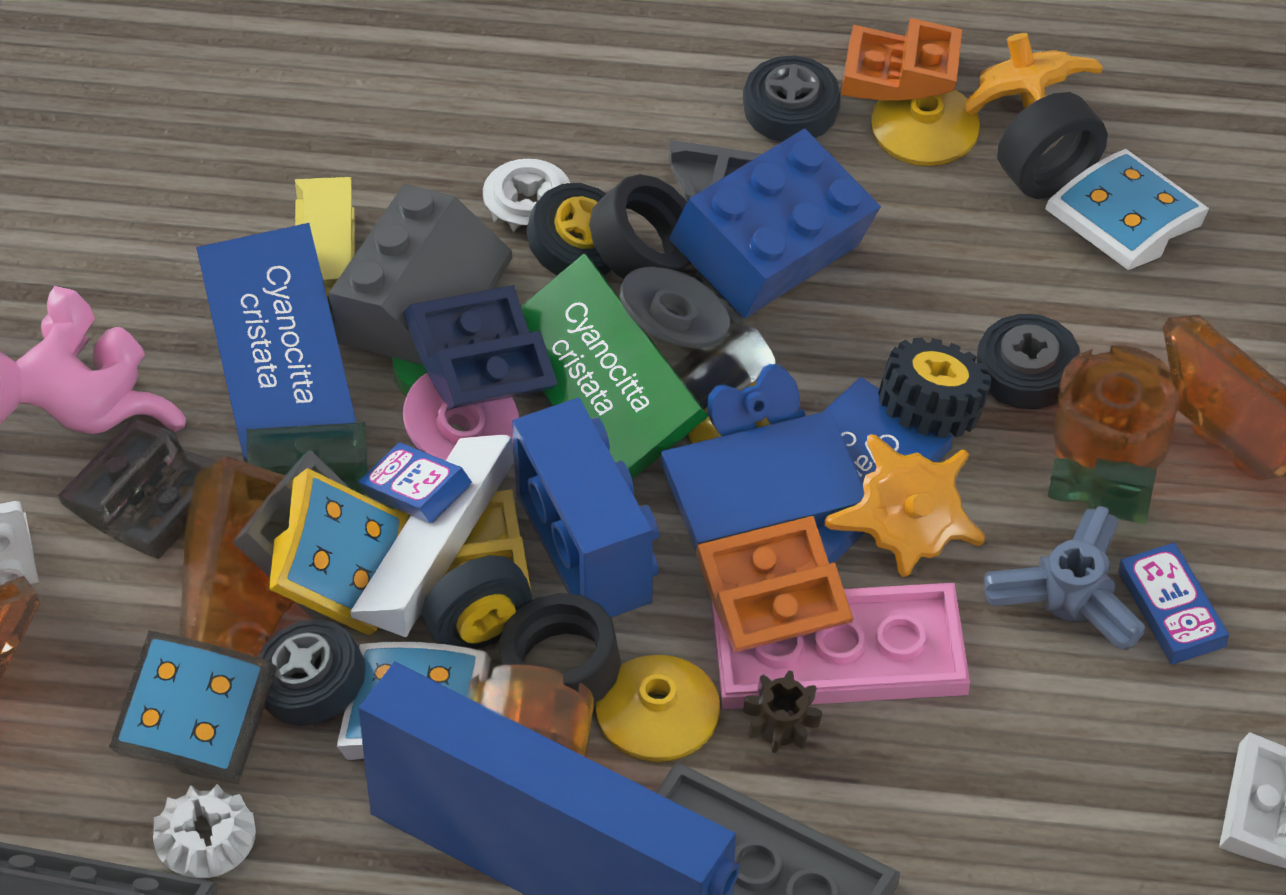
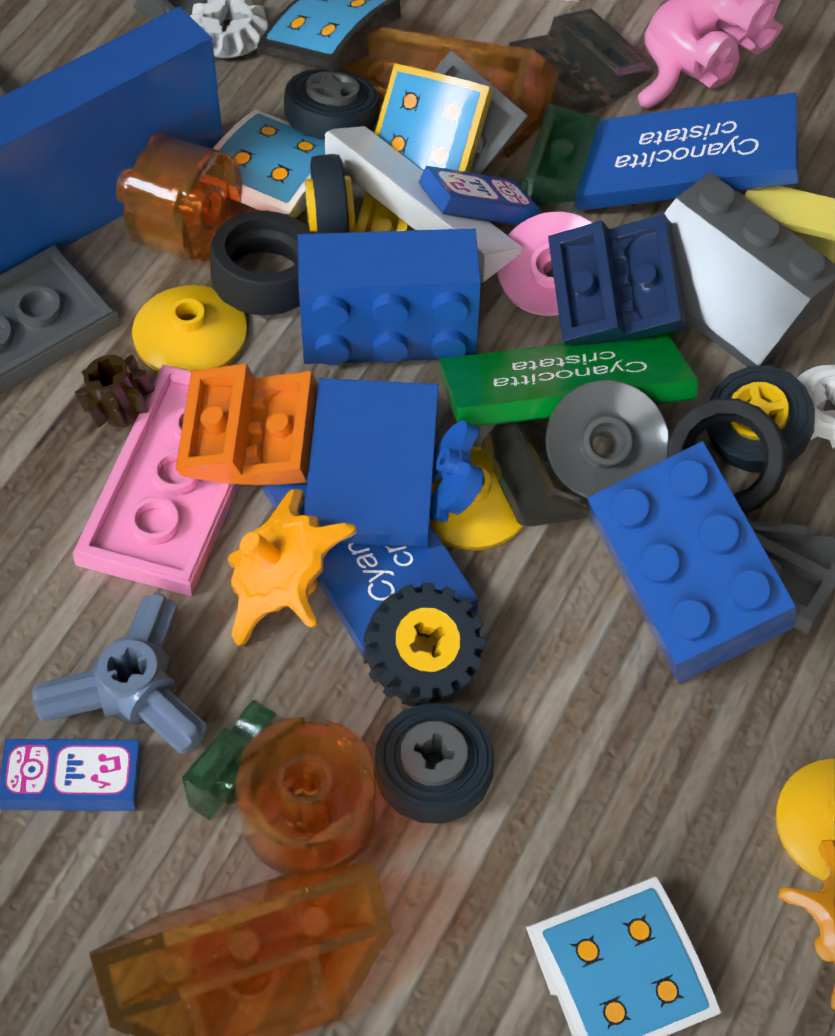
camera: 110 degrees right, 5 degrees up
(1041, 126) = (725, 896): black tyre -> none

